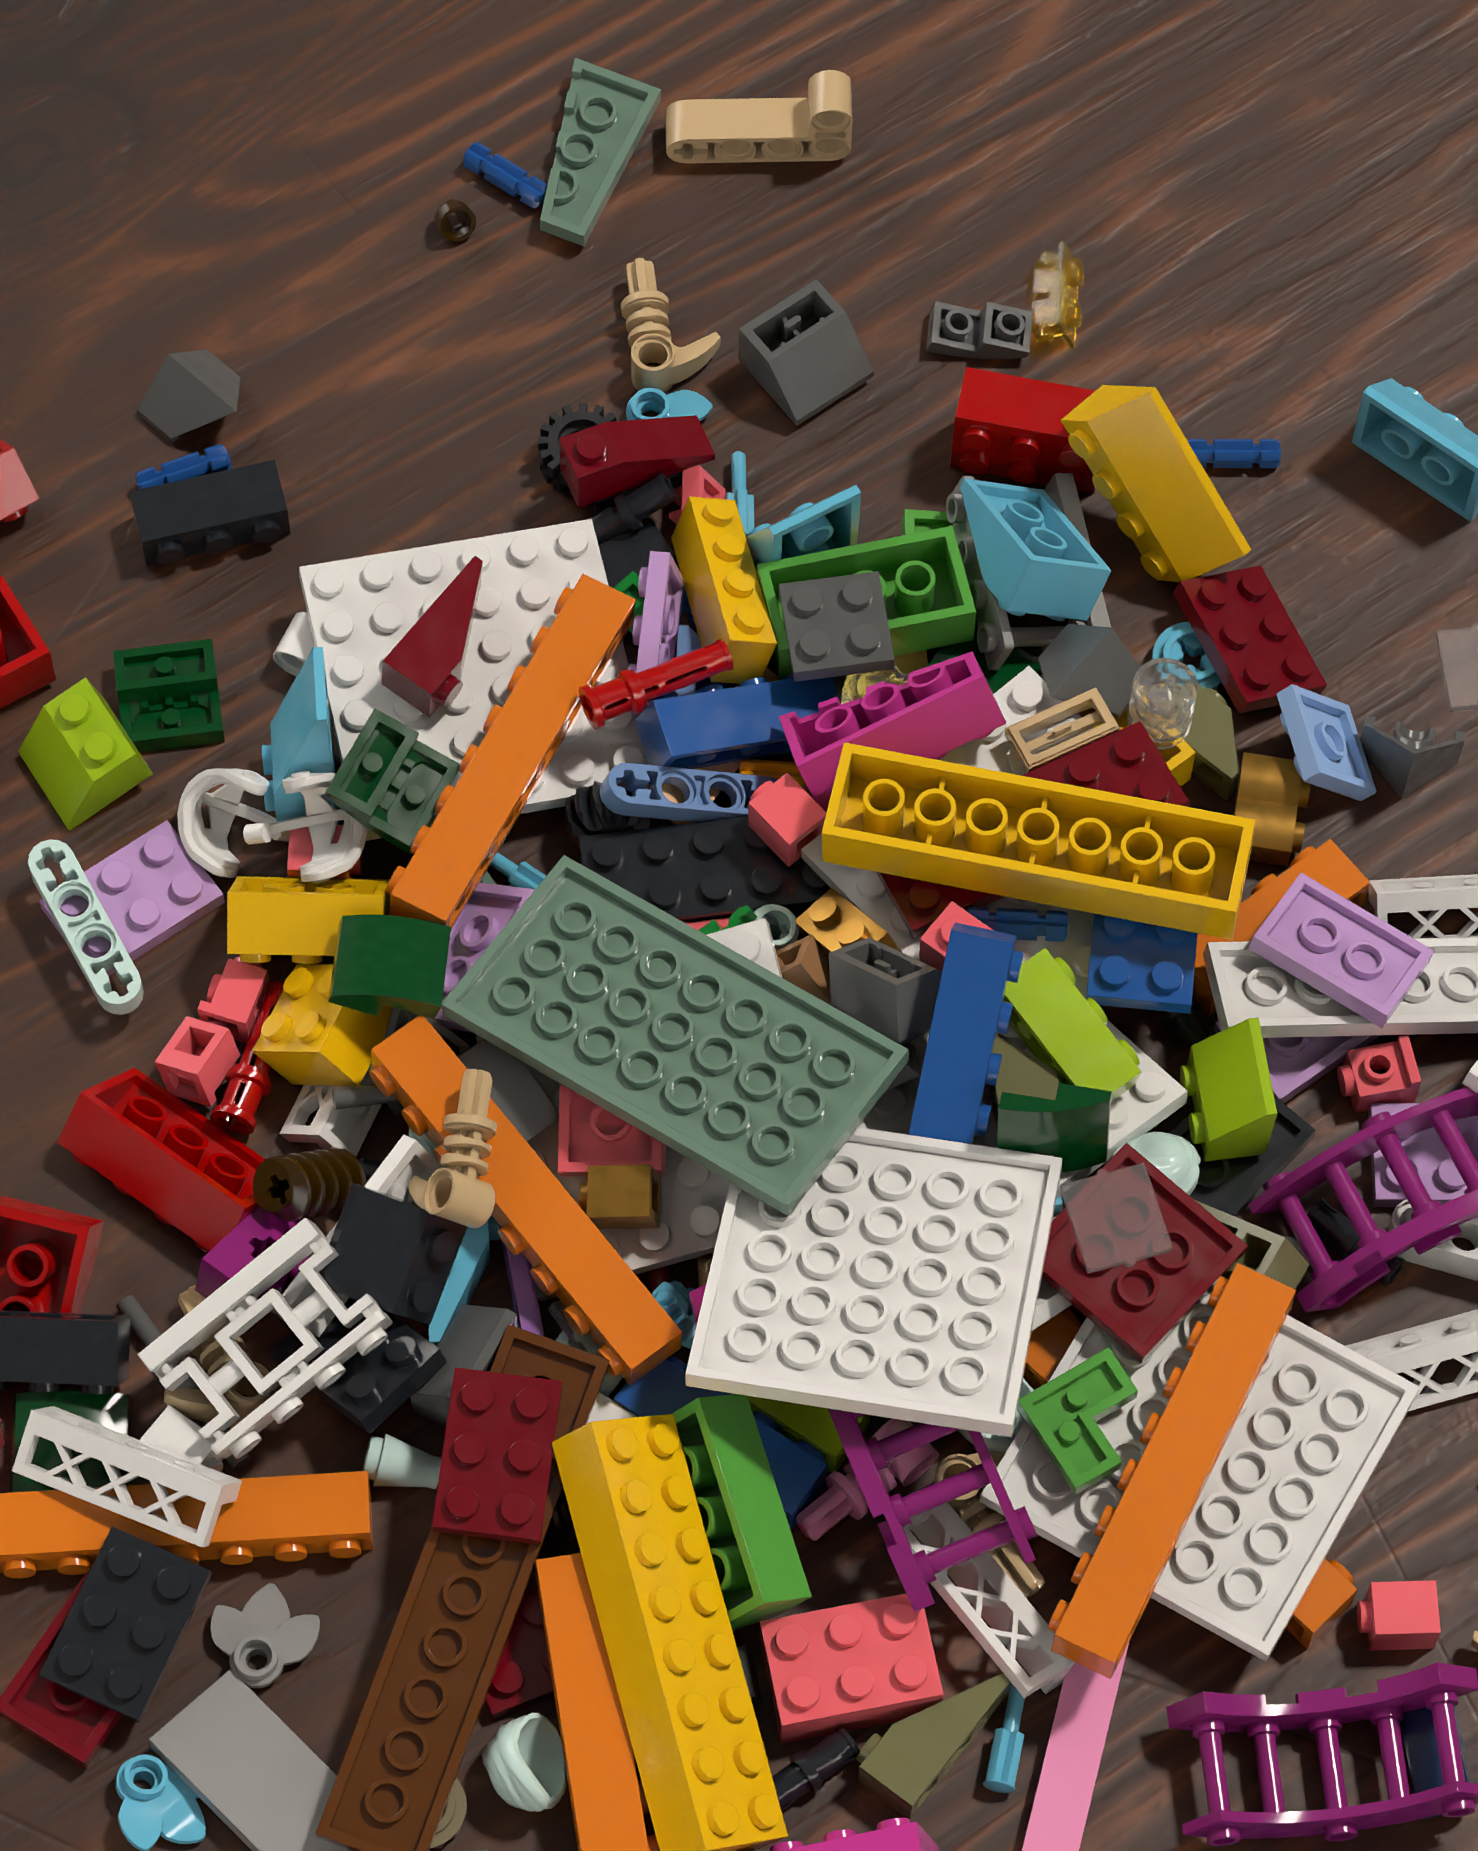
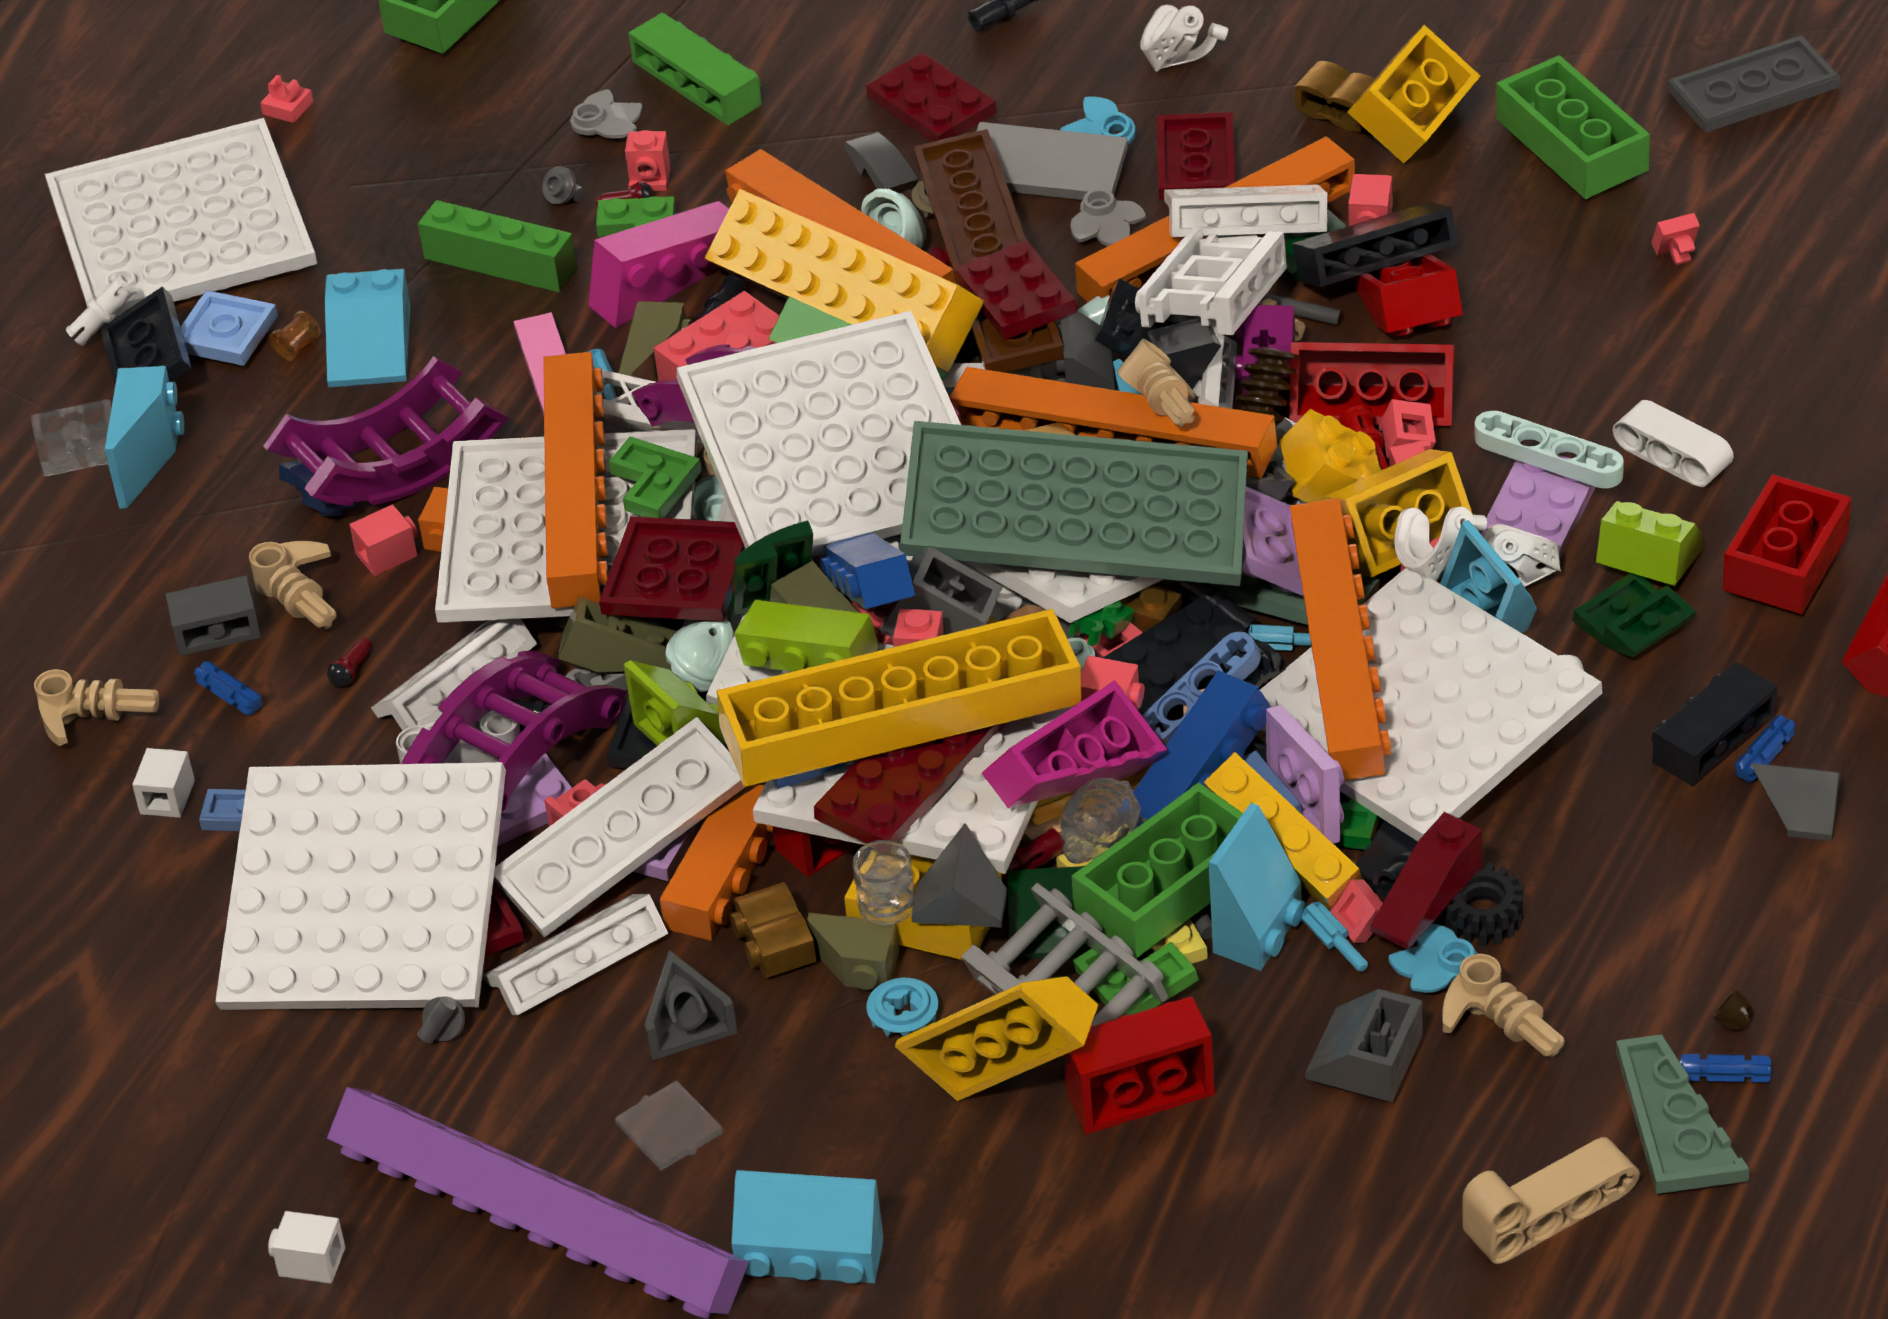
camera: 155 degrees right, 20 degrees down
(125, 1624) = (1183, 157): black plate -> none
(389, 964) = (1303, 461): dark green slope -> none
(391, 780) = (1403, 574): dark green slope -> none
(431, 656) = (1446, 664): dark red slope -> none
(634, 690) = (1278, 690): red pin -> none
(836, 626) = (1166, 807): dark grey plate -> none
(984, 334) = (1252, 1153): dark grey slope -> none
(1023, 751) = (949, 816): tan tile -> none
(1032, 552) = (1061, 937): medium azure slope -> none
(1059, 279) = (1196, 1204): clear yellow hinge -> none
(1116, 1218) = (696, 565): clear piece -> none
(1237, 452) = (972, 1167): blue axle -> none
(1248, 637) = (856, 1031): dark red plate -> none
(1325, 743) = (756, 974): light blue plate -> none
(1341, 950) = (647, 813): lavender plate -> none

